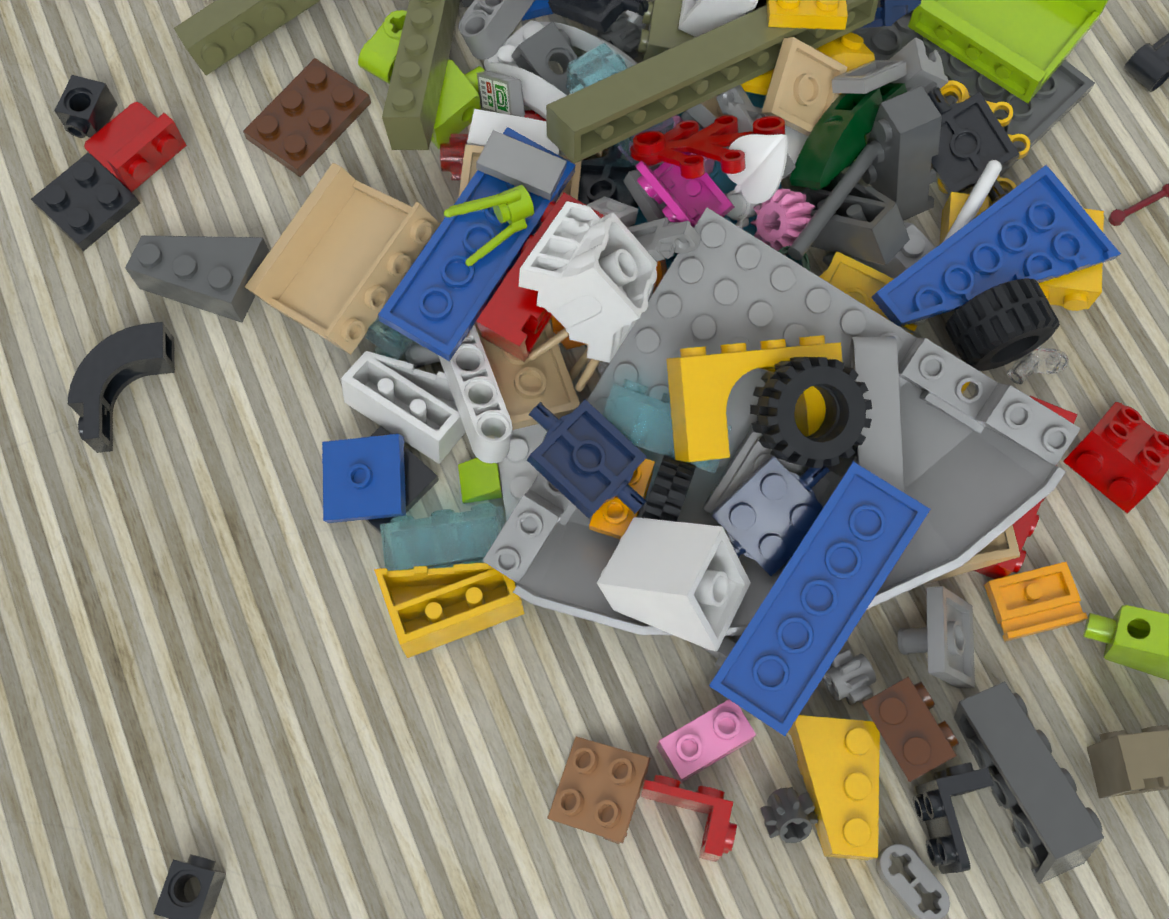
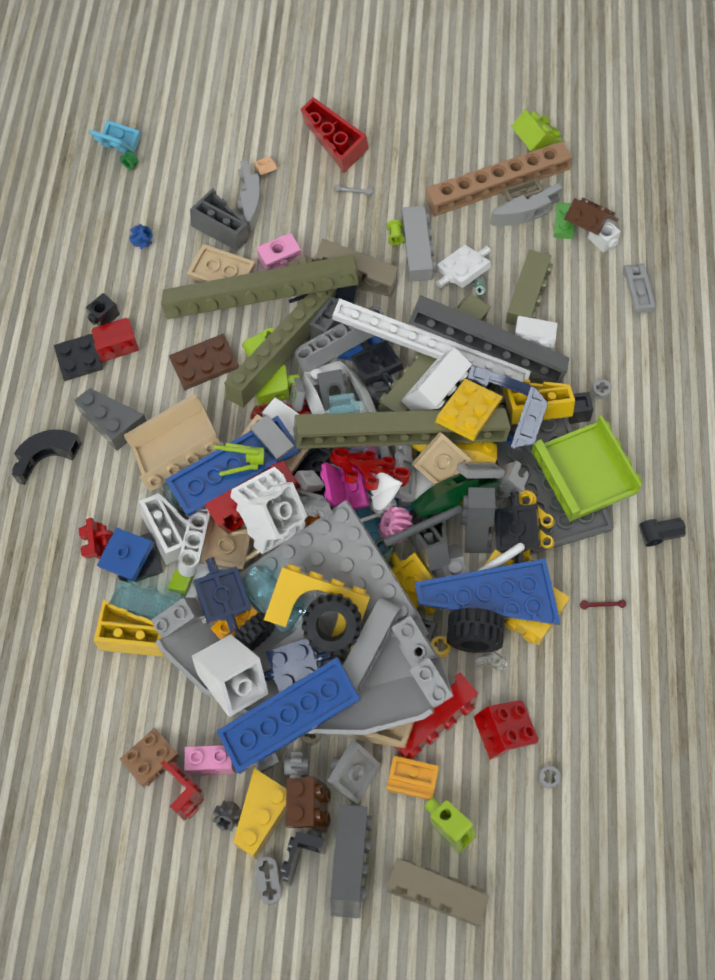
camera: 30 degrees right, 5 degrees down
(298, 474) = (97, 538): none -> red hips

